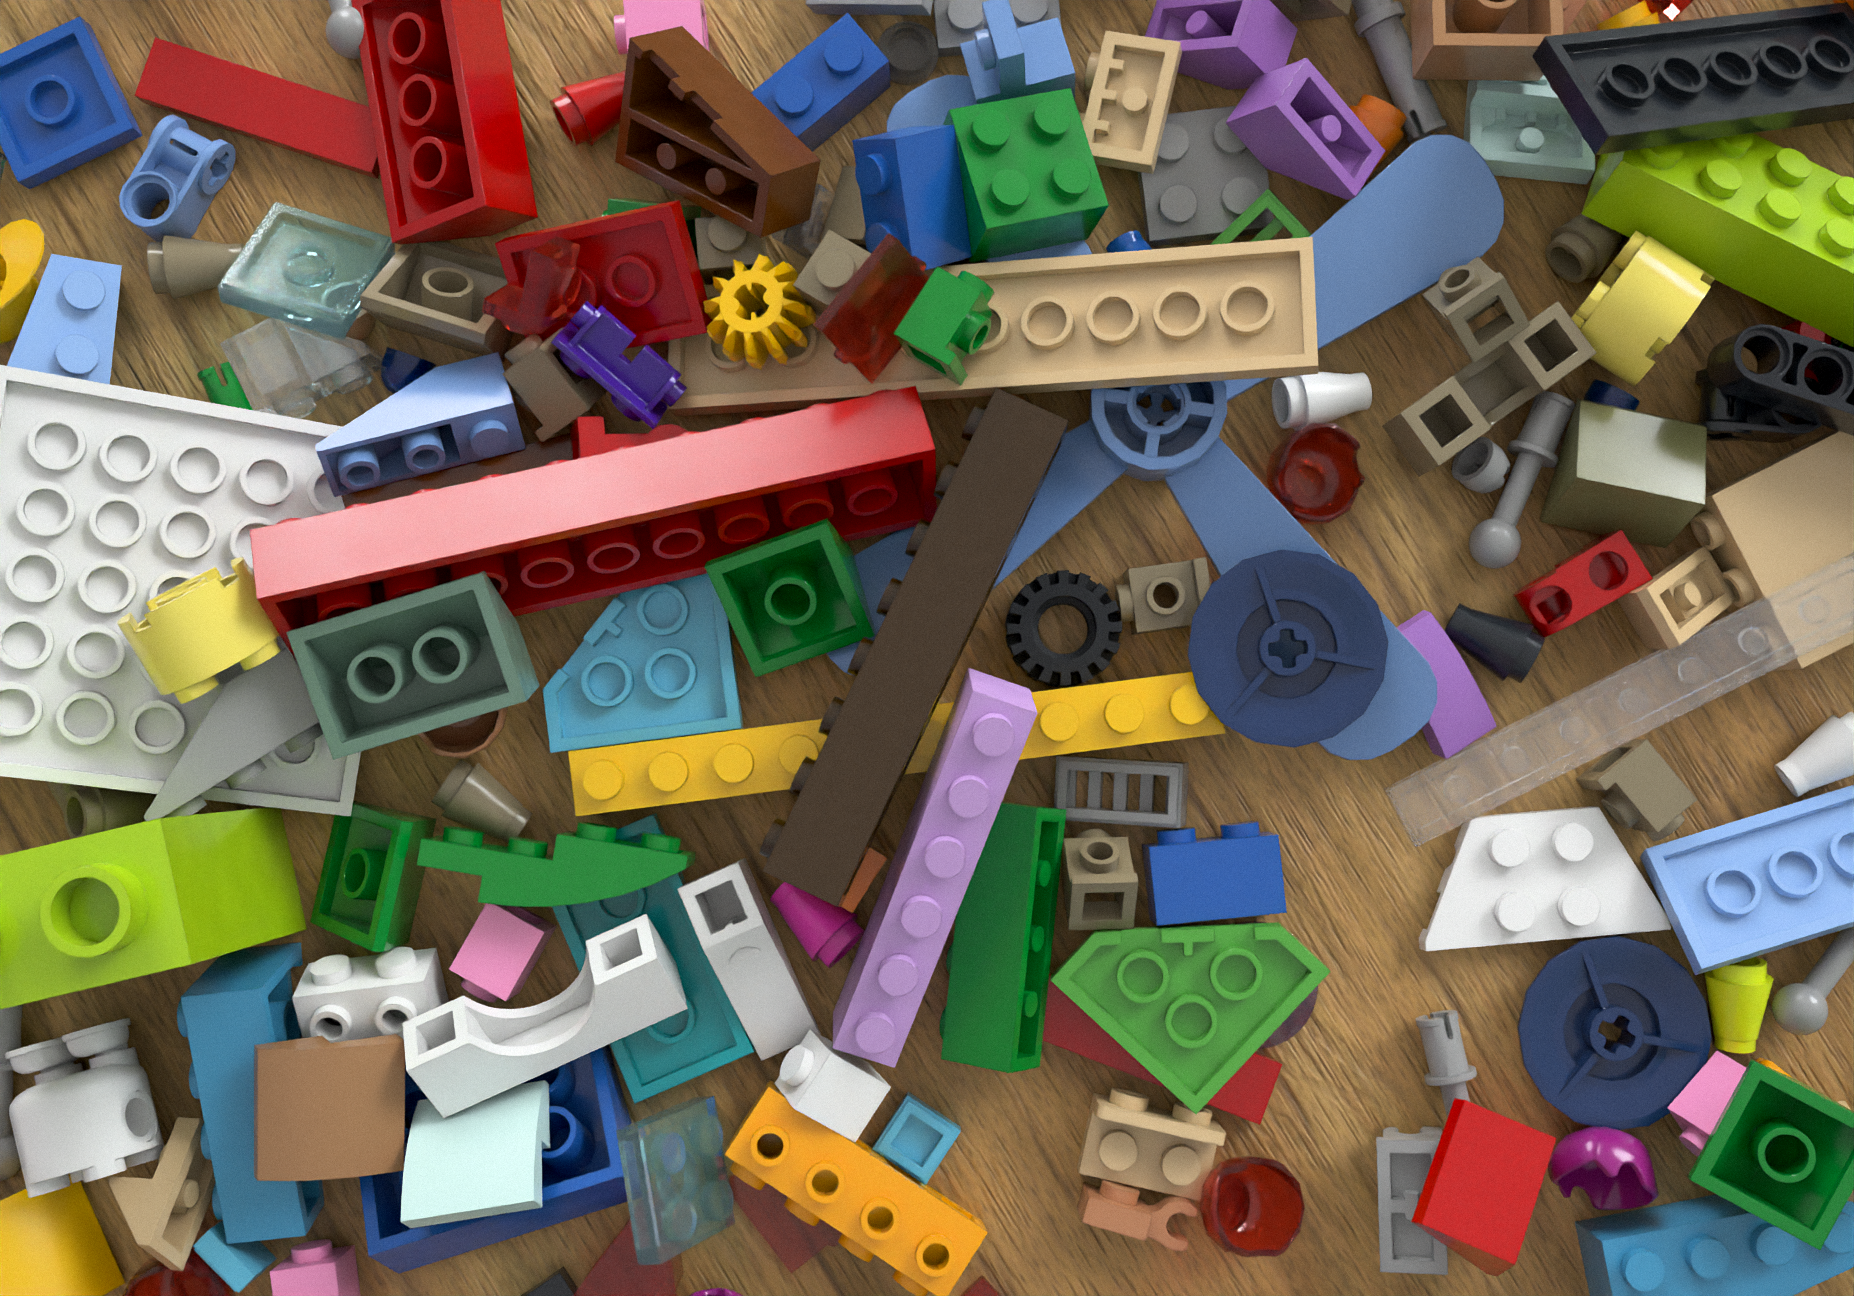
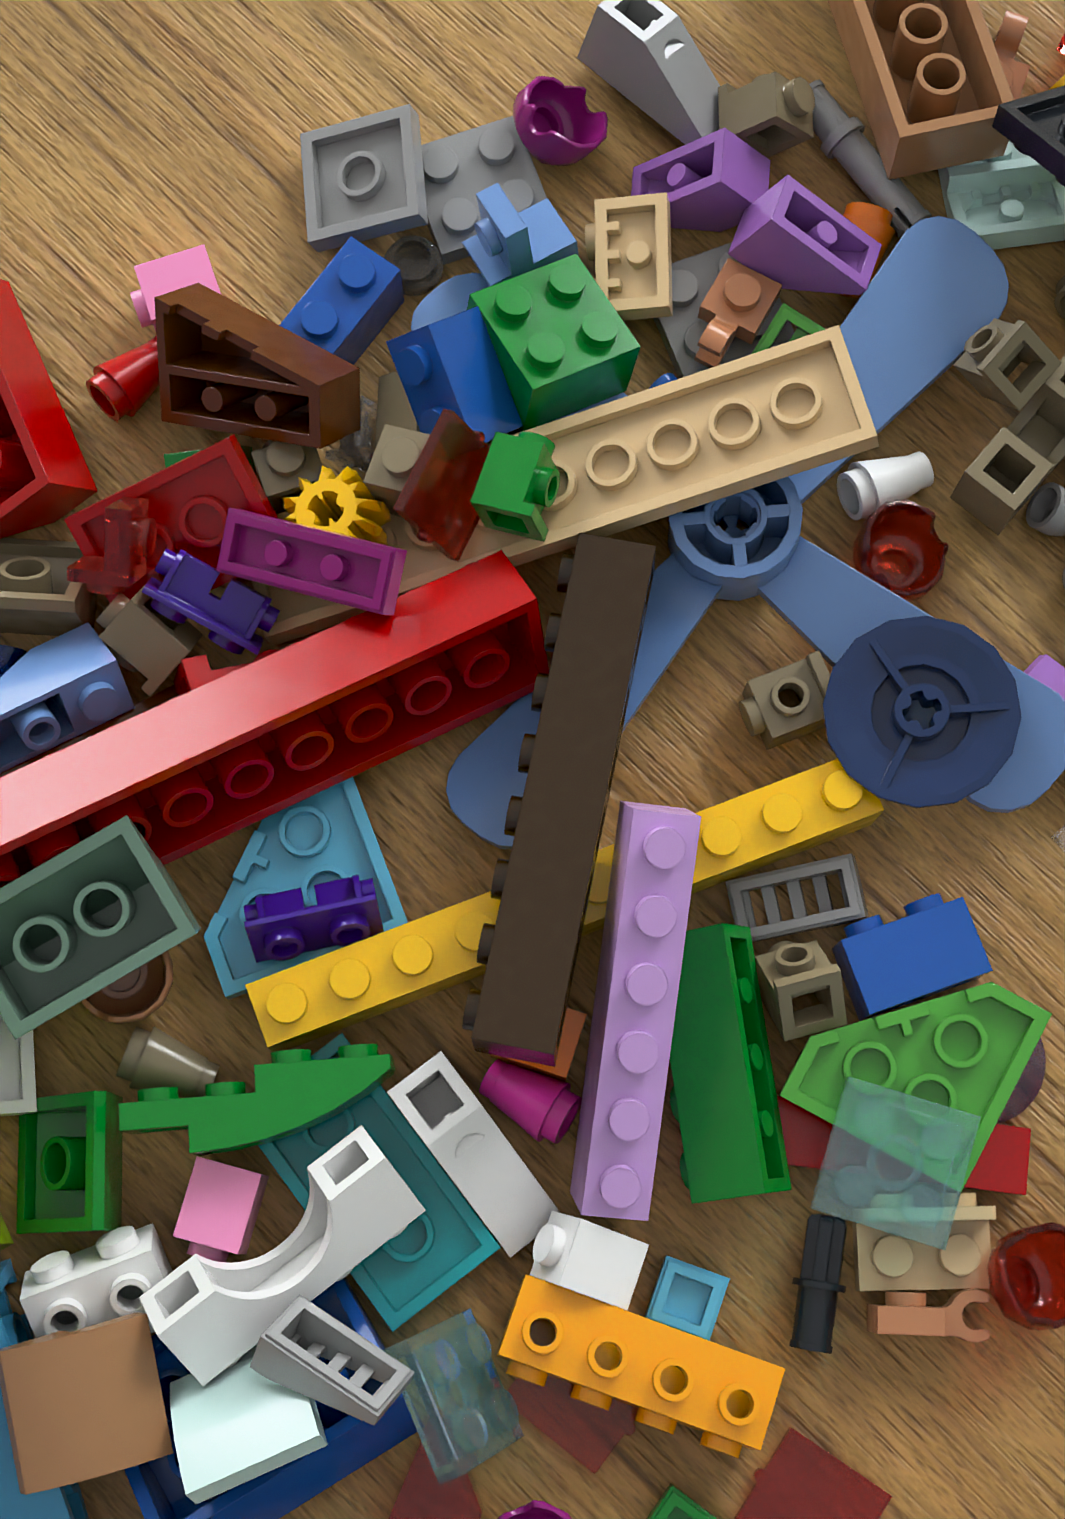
camera: 15 degrees left, 10 degrees down
(563, 1103) = (291, 1353): none -> light grey slope
(618, 700) = (284, 928): none -> dark purple hinge
(724, 353) = (311, 561): none -> magenta tile
(792, 596) = (429, 783): green slope -> none
(1042, 1157) = (819, 1283): none -> black axle
(1090, 601) = (704, 719): black tyre -> none
(1141, 1073) = (895, 1162): none -> clear light blue plate
(1217, 181) = (734, 308): none -> nougat plate

